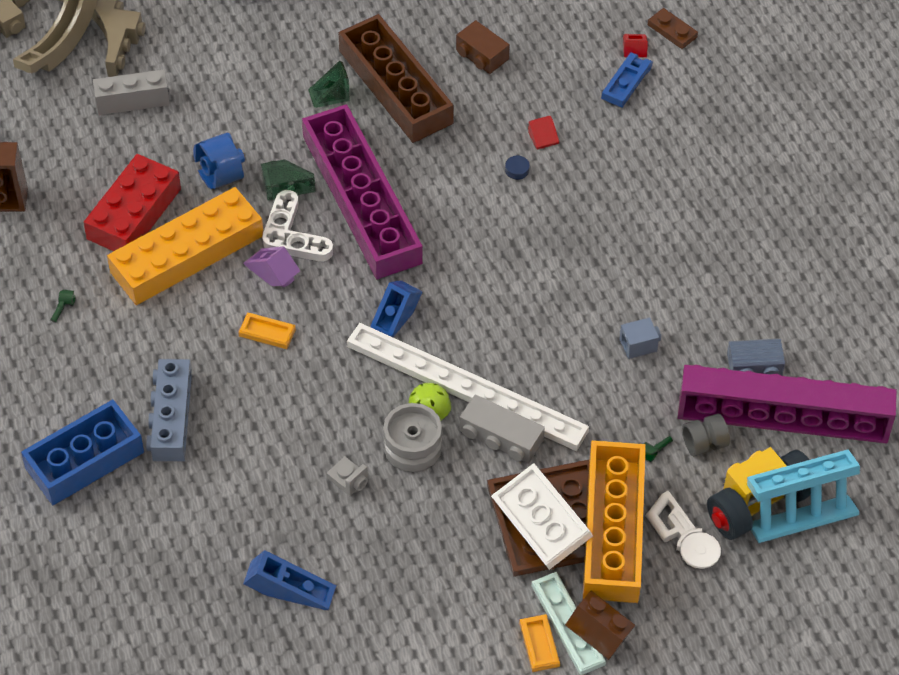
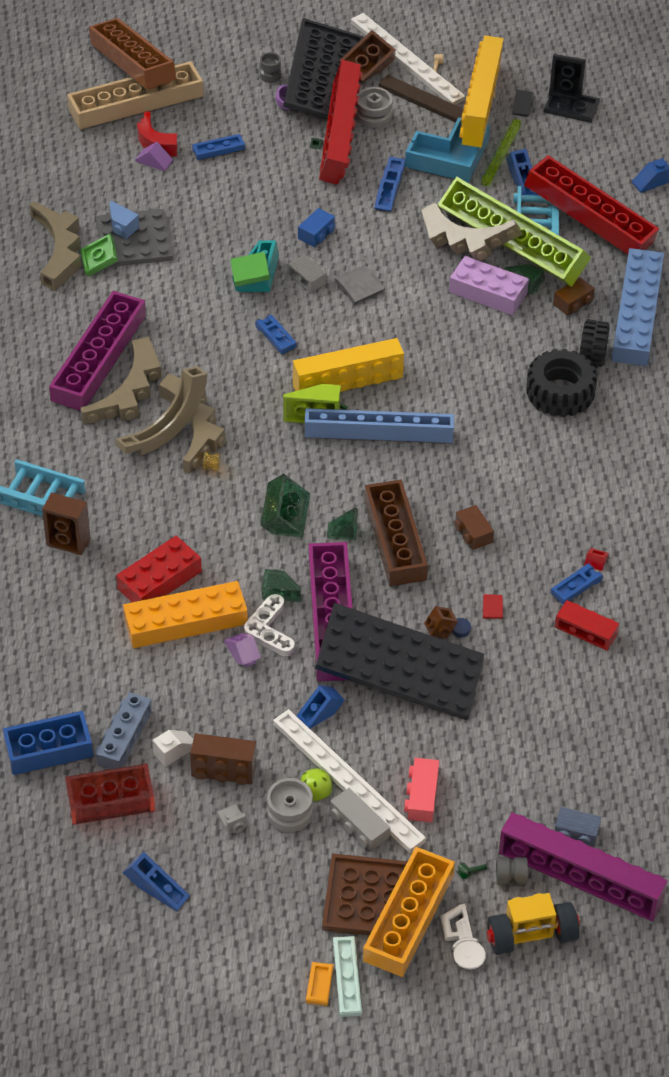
camera: 20 degrees right, 5 degrees down
(66, 297) = (83, 627): dark green hand -> none
(131, 92) = (193, 488): light grey brick -> none
(139, 55) = (211, 461): none -> clear yellow wheel
(187, 491) = (110, 793): none -> clear red brick
(219, 161) = (235, 558): blue brick -> none
(238, 409) = (171, 746): none -> white slope
(250, 85) = (285, 507): none -> clear green slope
(267, 330) = (219, 695): light orange tile -> none
(310, 405) = (223, 759): none -> reddish brown brick
(468, 226) = (400, 661): none -> black plate
(494, 167) = (440, 622): none -> reddish brown brick
(542, 516) = (356, 890): white tile -> none
(559, 370) = (422, 790): none -> coral brick
(599, 625) = (366, 983): reddish brown brick -> none
(639, 337) = (495, 784): sand blue brick -> none
(660, 123) = (587, 625): none -> red brick
(672, 28) = (632, 554): reddish brown plate -> none
(796, 478) = (566, 922): medium azure fence -> none

